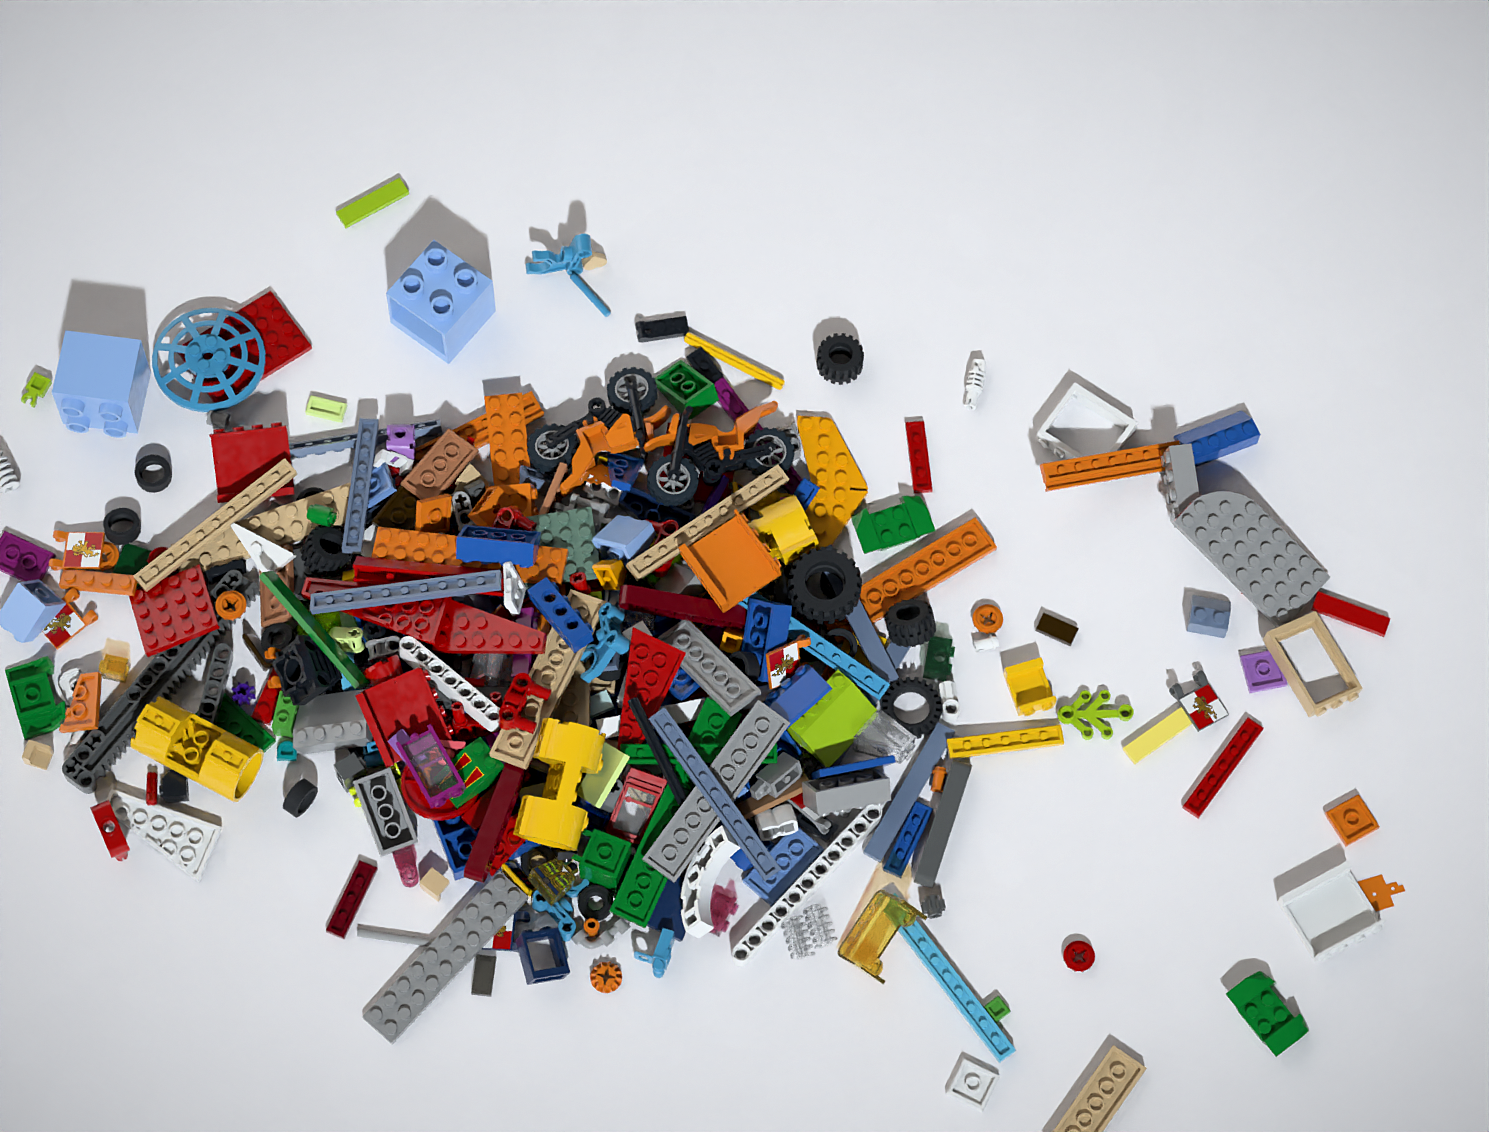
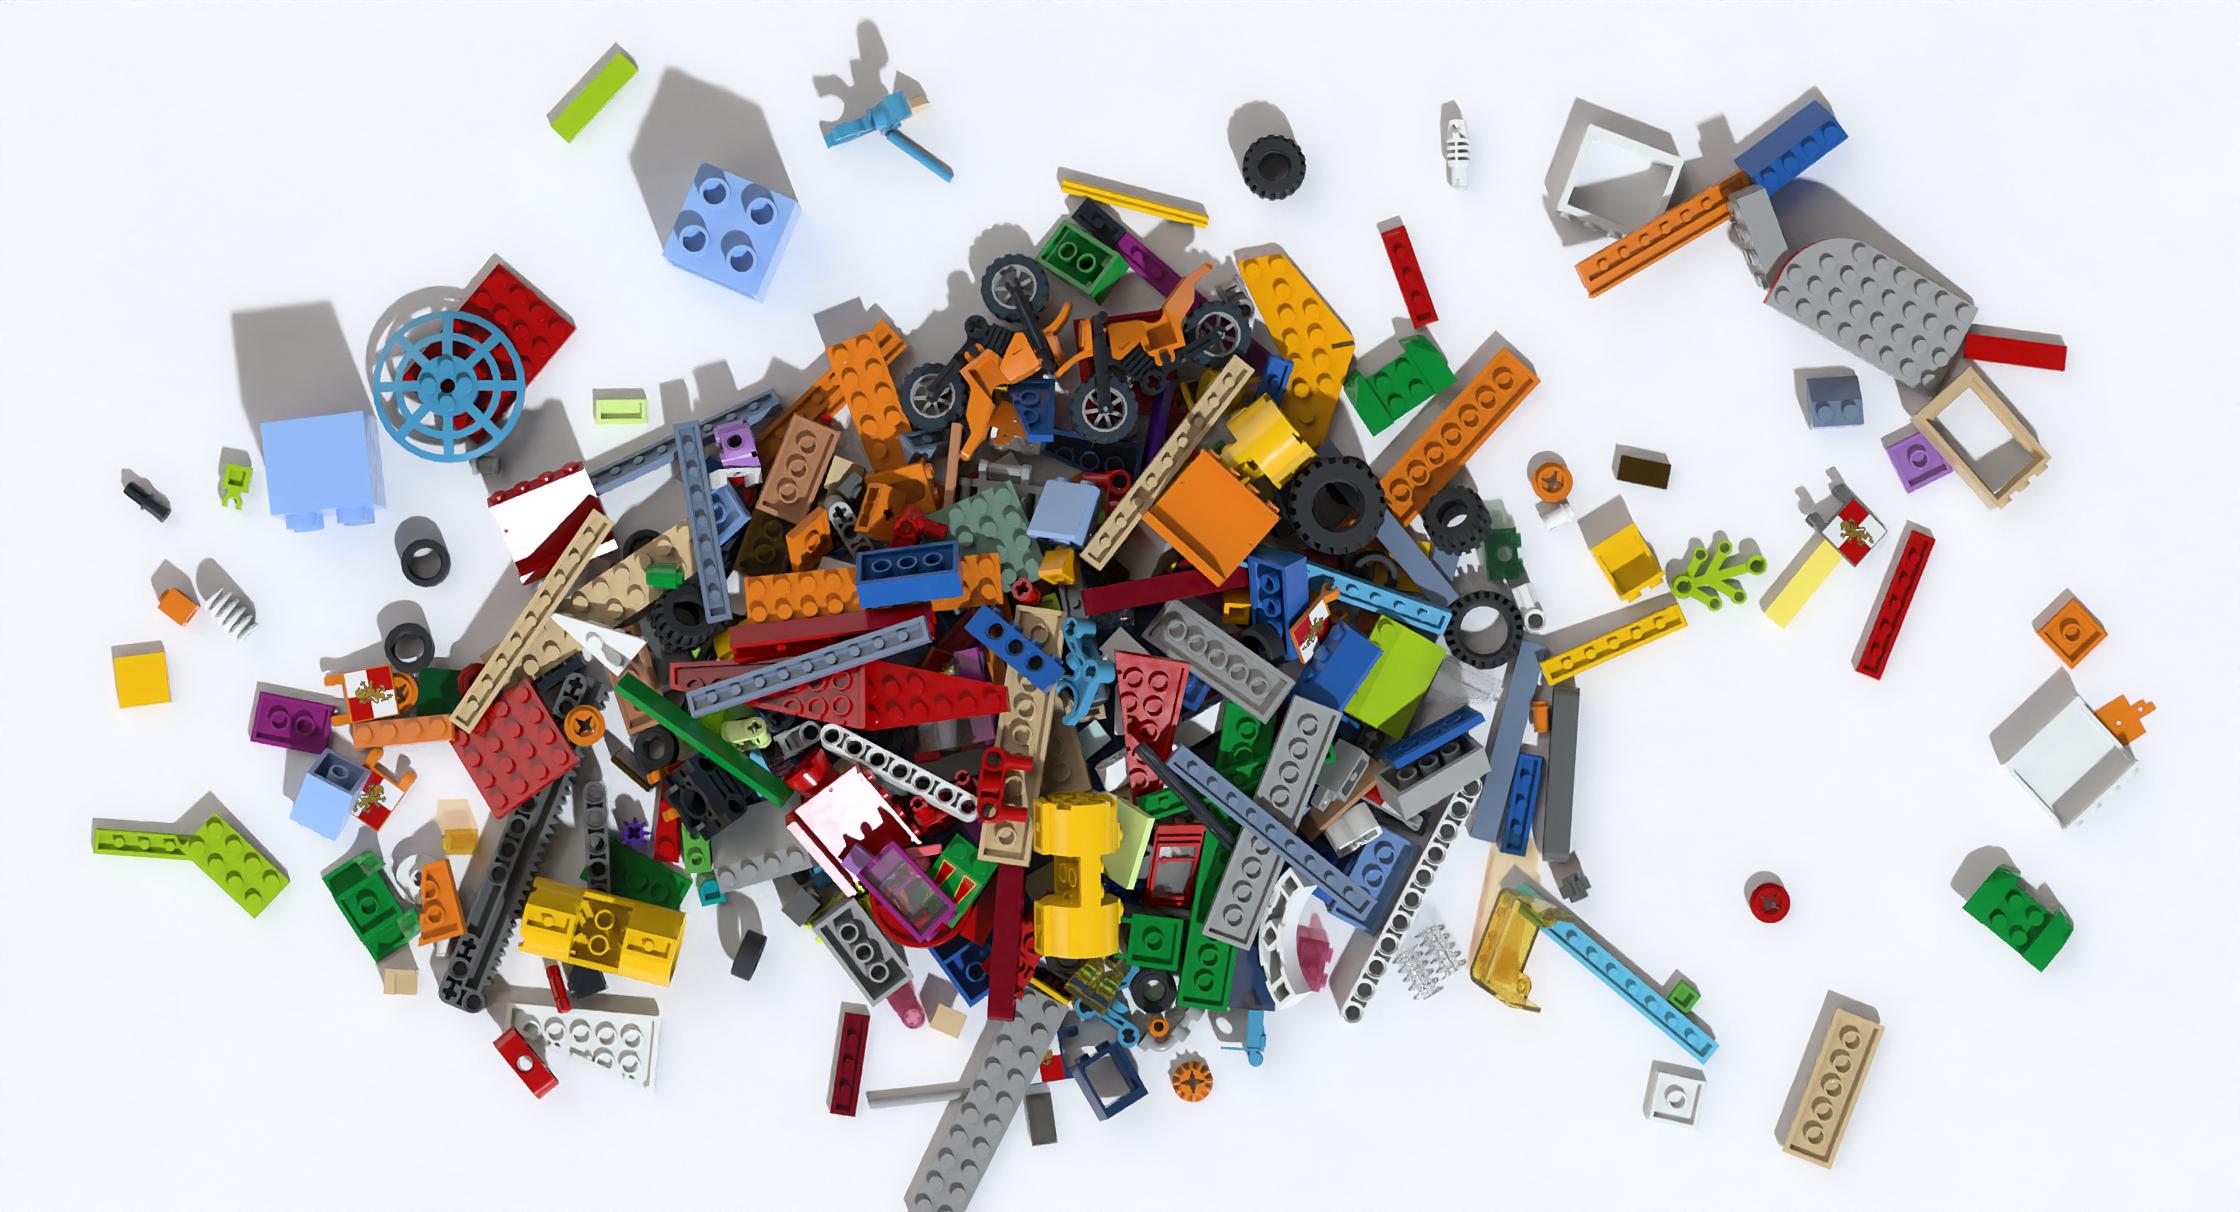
camera: 15 degrees left, 20 degrees up
(513, 589) = (945, 629): white wing -> none
(662, 329) = (1029, 181): black plate -> none

